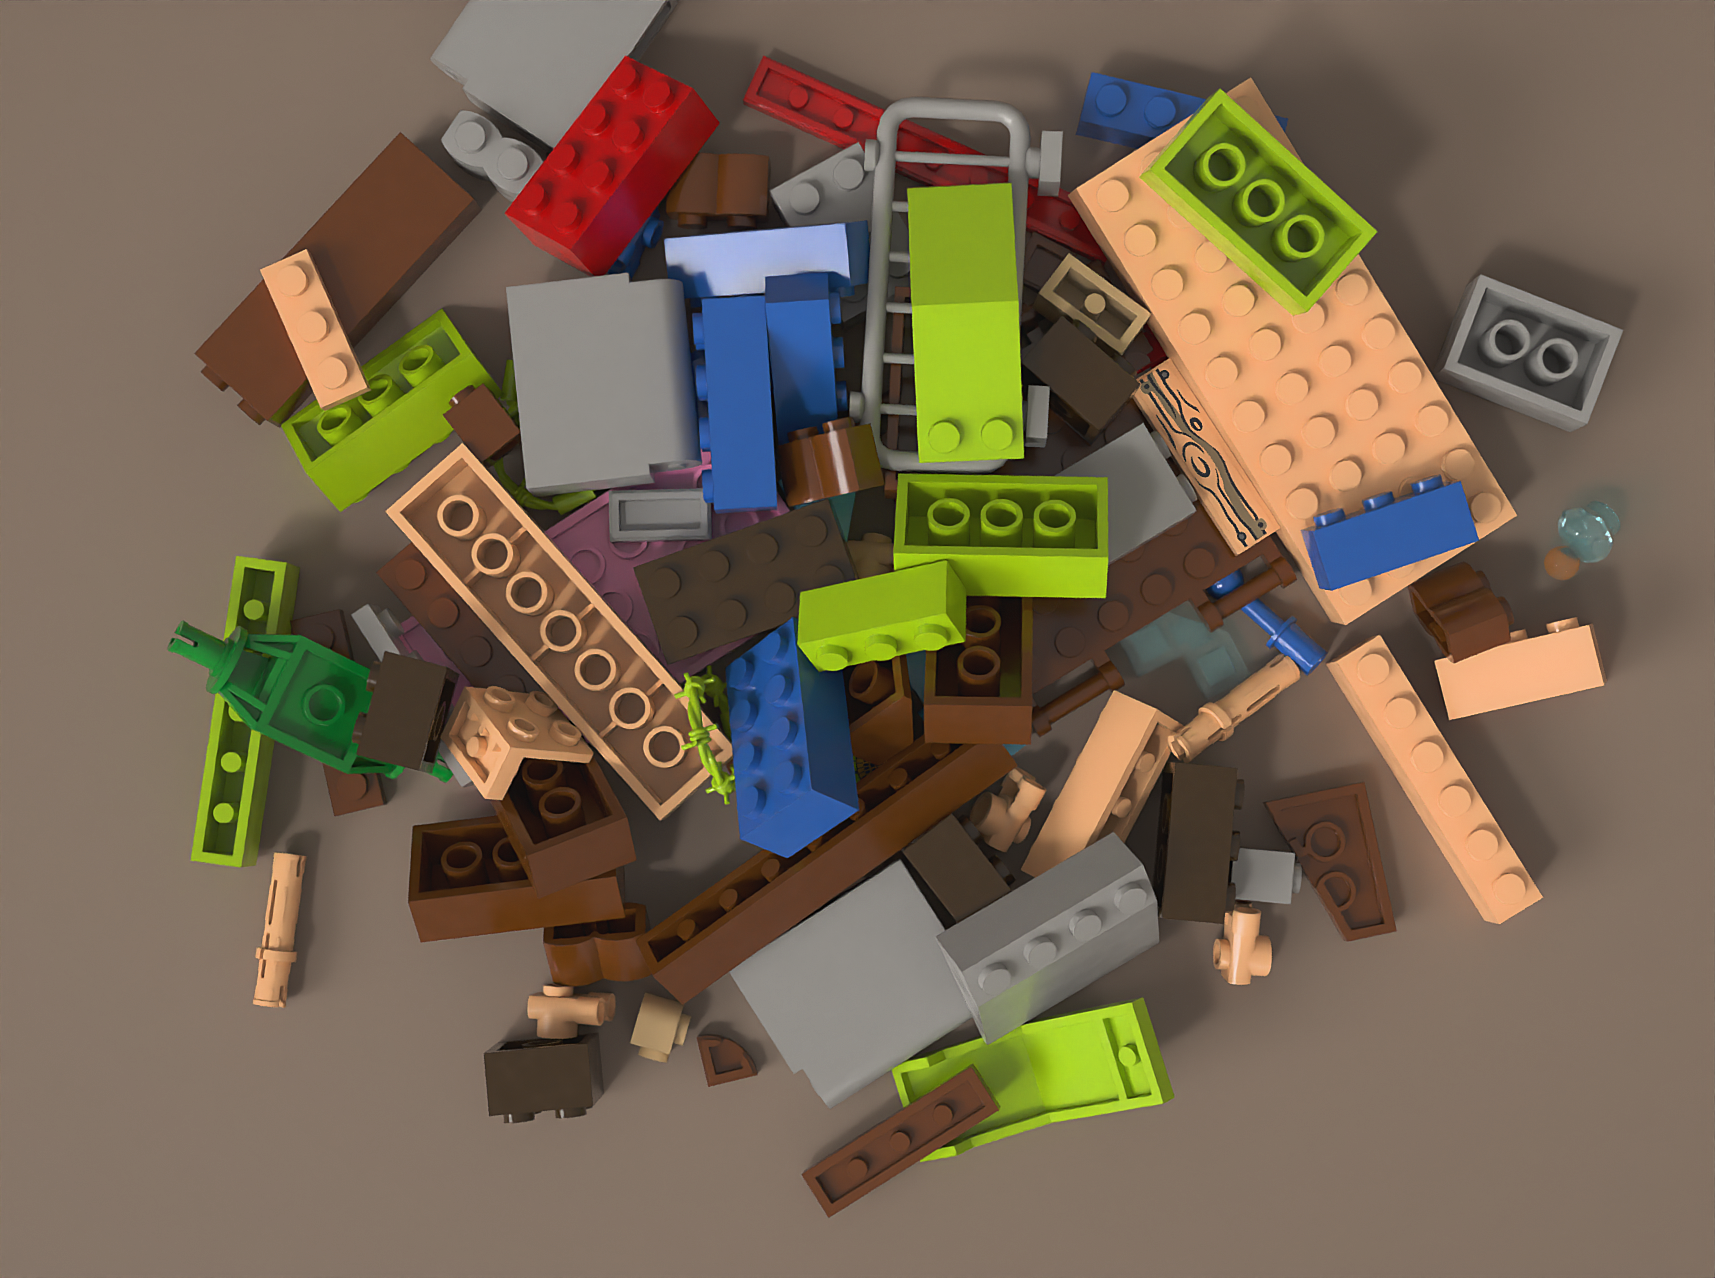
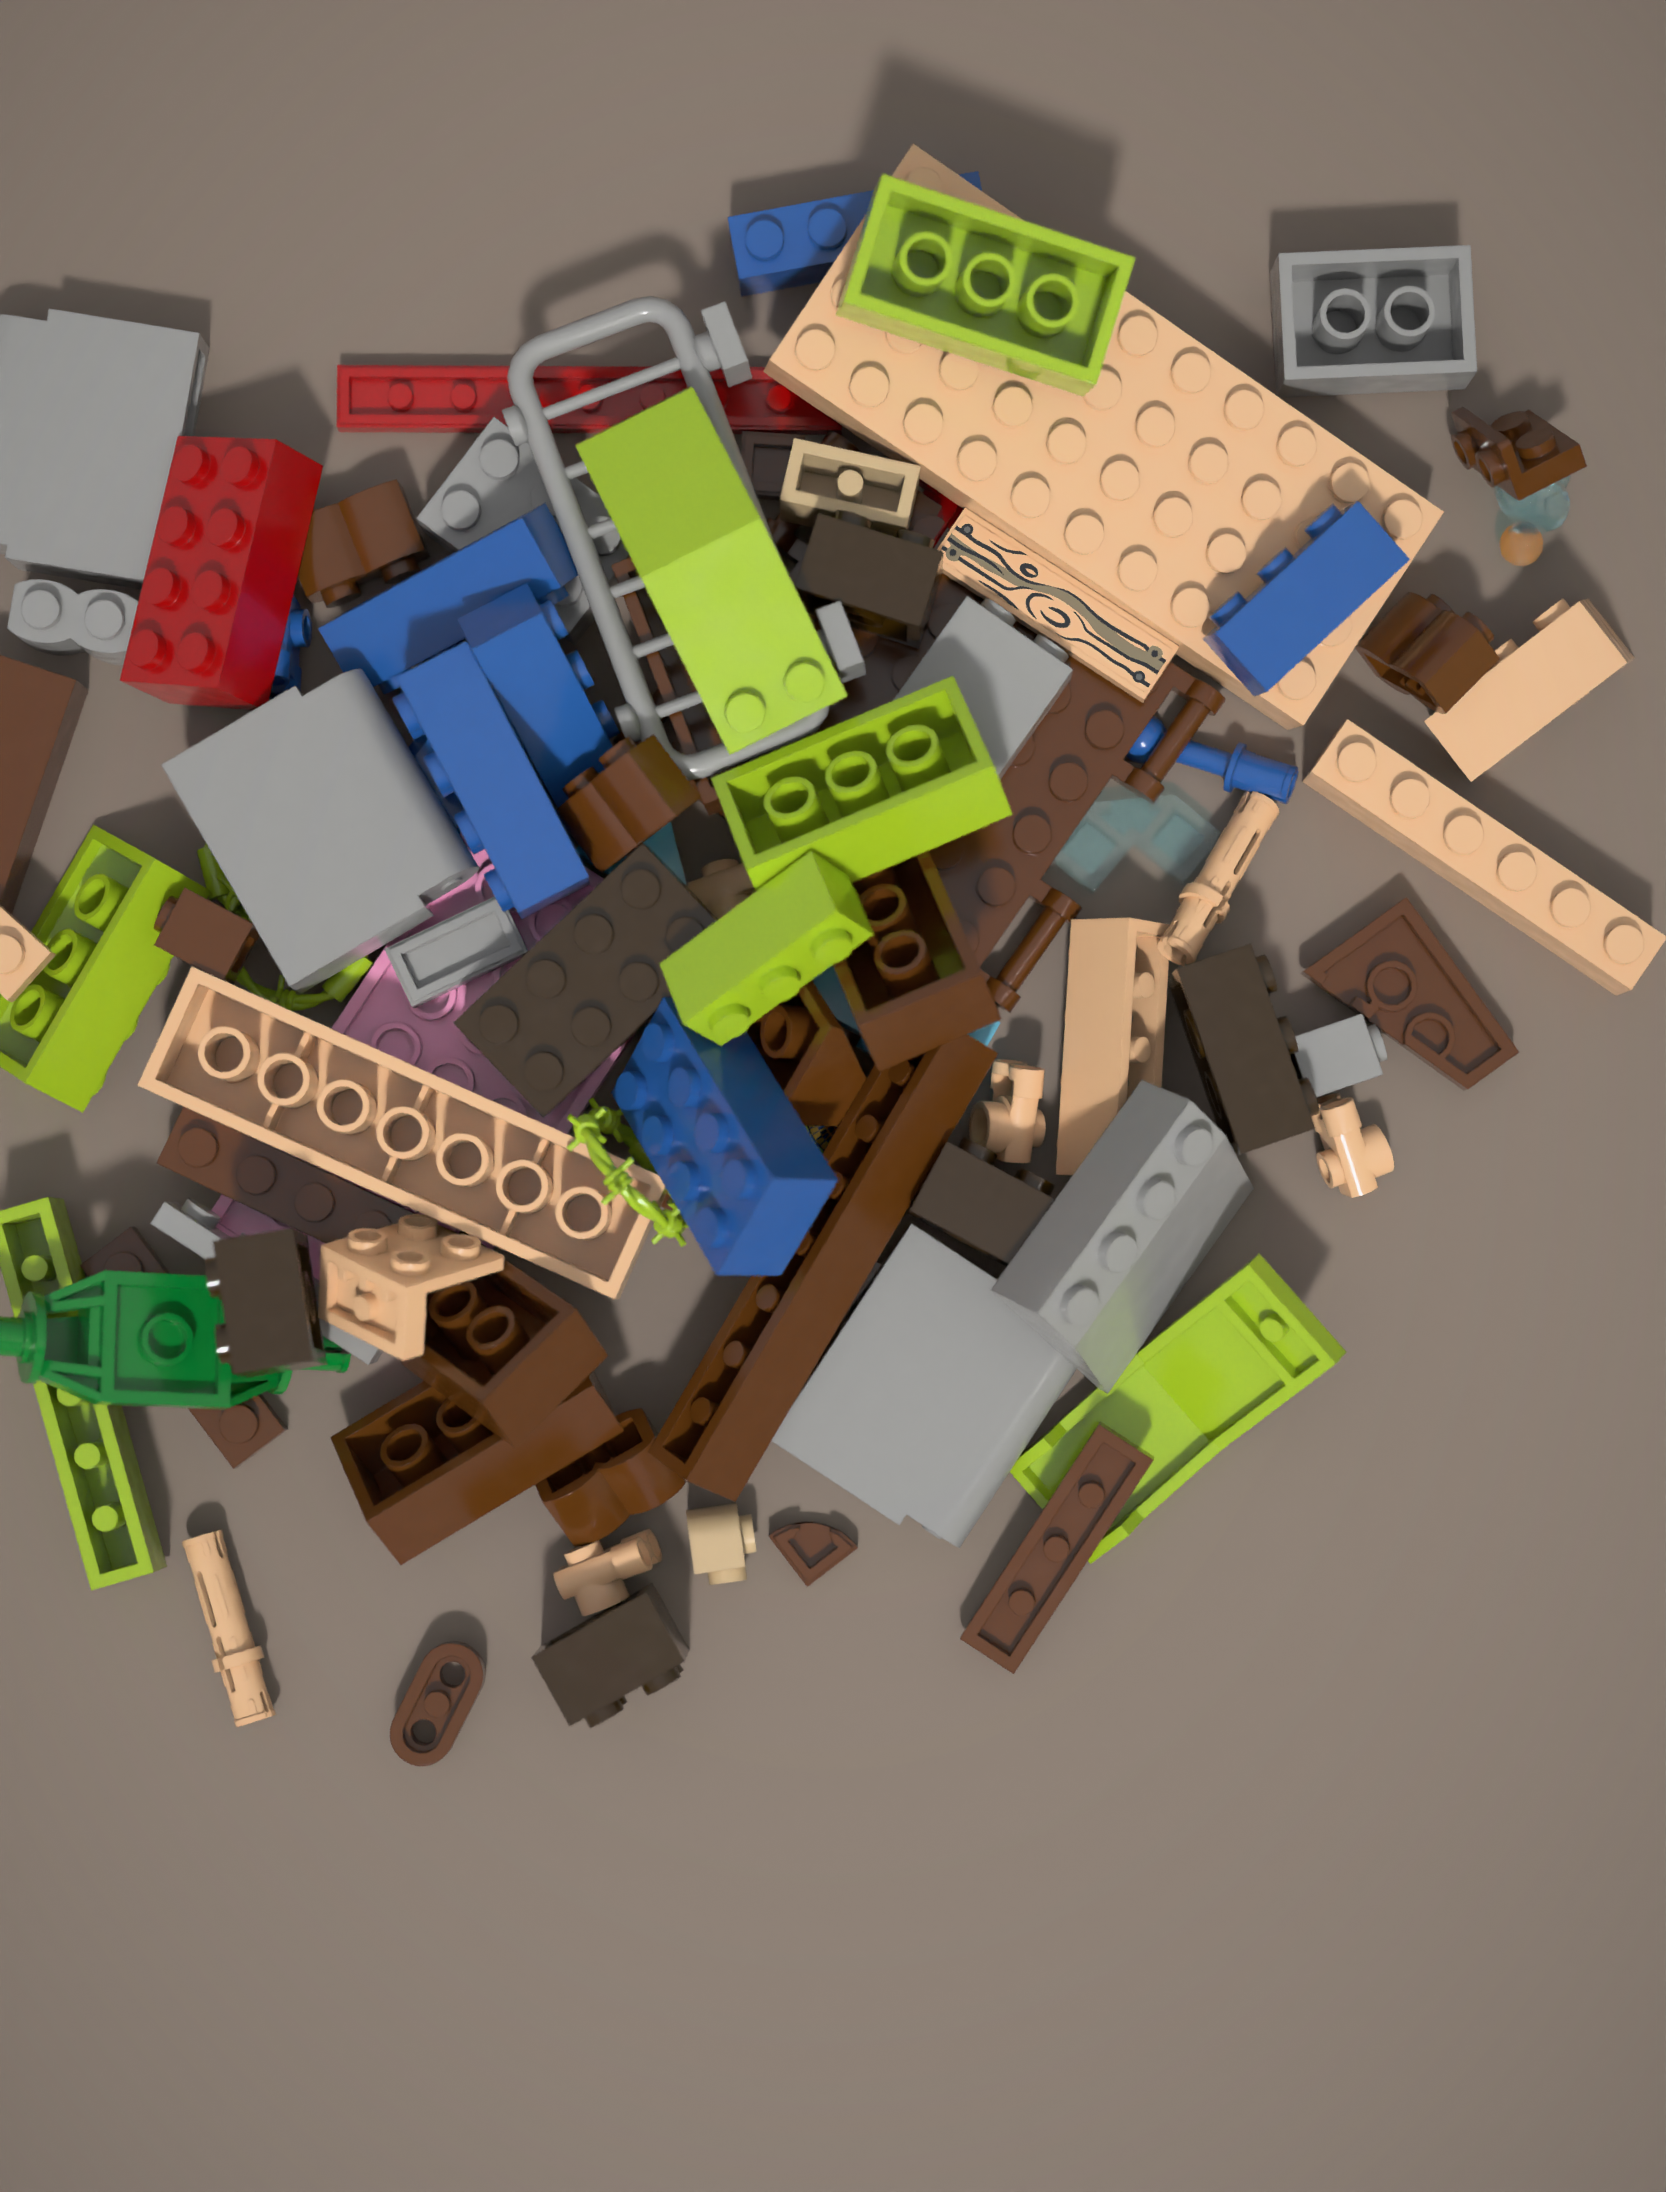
camera: 25 degrees left, 0 degrees up
(406, 1050) = (437, 1702): none -> reddish brown plate
(1589, 494) = (1516, 451): none -> reddish brown bracket

